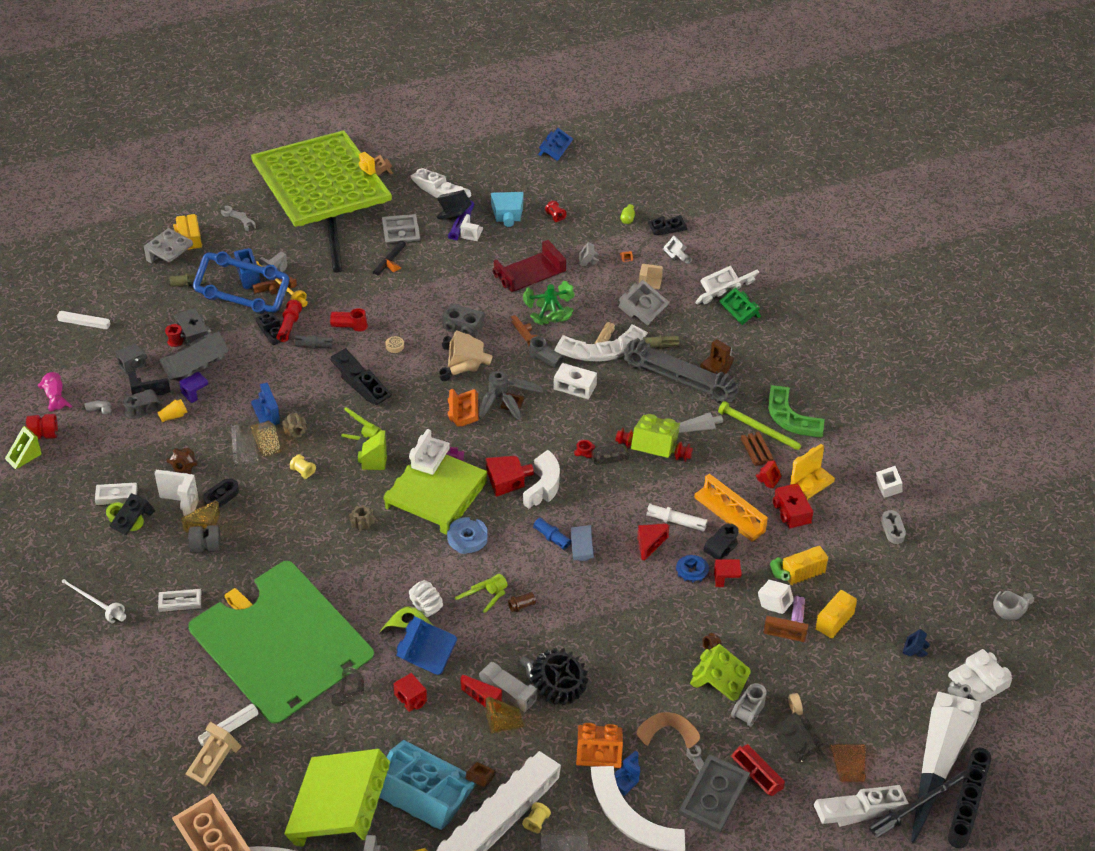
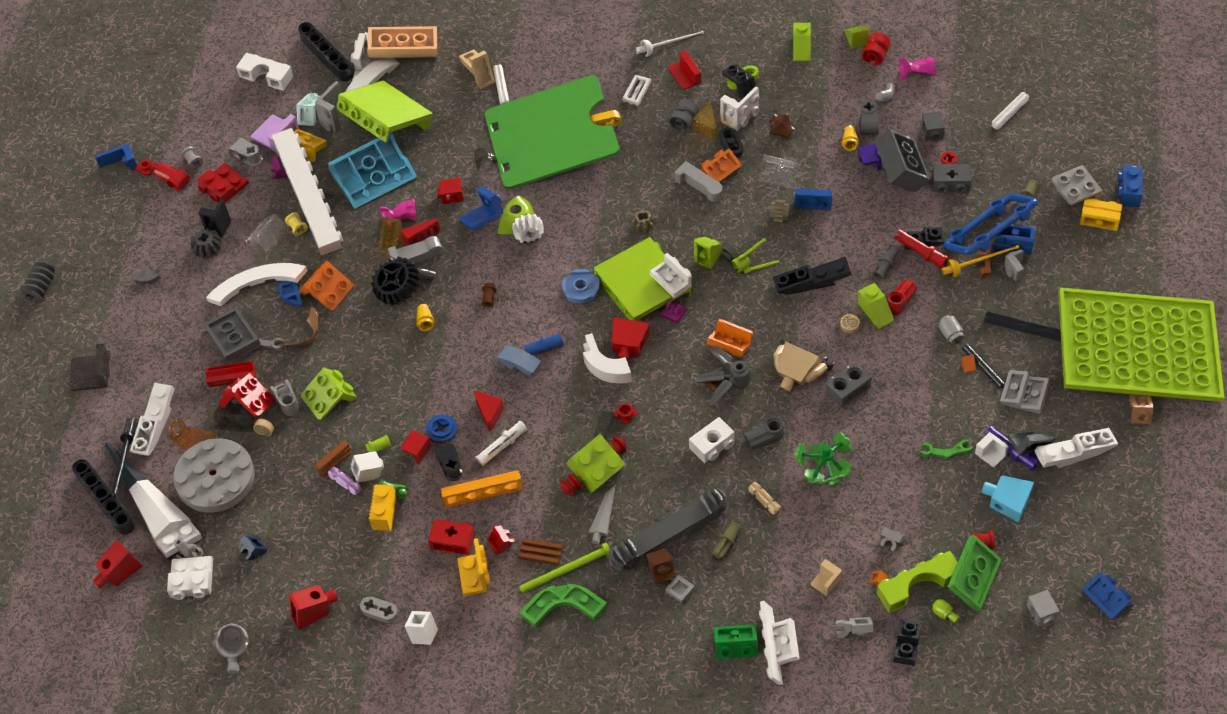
camera: 125 degrees right, 10 degrees up
(53, 486) = (801, 41): none -> lime slope
(114, 493) = (772, 79): white plate -> none
(134, 566) = (685, 71): none -> red panel
(148, 220) = (1130, 186): none -> blue brick
(159, 386) = (893, 119): black bracket -> none
(242, 216) = (1110, 268): light grey piece -> none
(258, 491) = (722, 166): none -> orange bracket
(266, 438) = (778, 187): clear yellow slope -> none
(282, 506) = (699, 180): none -> light grey leg
(302, 466) = (728, 203): light yellow bush -> none
(365, 281) = (951, 329): none -> light grey brick
(367, 163) = (1127, 378): yellow plate -> none
(367, 332) = (875, 305): none -> lime slope
(462, 722) = (403, 211): none -> dark pink animal
(480, 774) = (354, 207): reddish brown tile -> none
(487, 252) = (946, 453): none -> bright green piece
(493, 585) = (515, 283): lime plant -> none
(523, 329) = (812, 432): dark orange piece -> none
(531, 269) = (901, 475): dark red panel -> none
(583, 638) = (424, 318): none -> yellow cone
(589, 202) = (974, 573): none -> bright green tile
(590, 168) = (1043, 608): none -> light grey brick
(600, 351) = (739, 484): white tile -> none
(632, 238) = (895, 591): none -> lime arch
(643, 302) = (788, 549): light grey plate -> none
(712, 640) = (359, 402): reddish brown plate -> none
(745, 606) = (378, 444): none -> lime pin
(777, 732) = (249, 394): none -> red bracket
(836, 614) = (319, 501): yellow brick -> none
(878, 707) = (214, 475): none -> light grey piece
(935, 564) = (310, 605): none -> red torso
(1024, 732) = (116, 565): none -> red torso

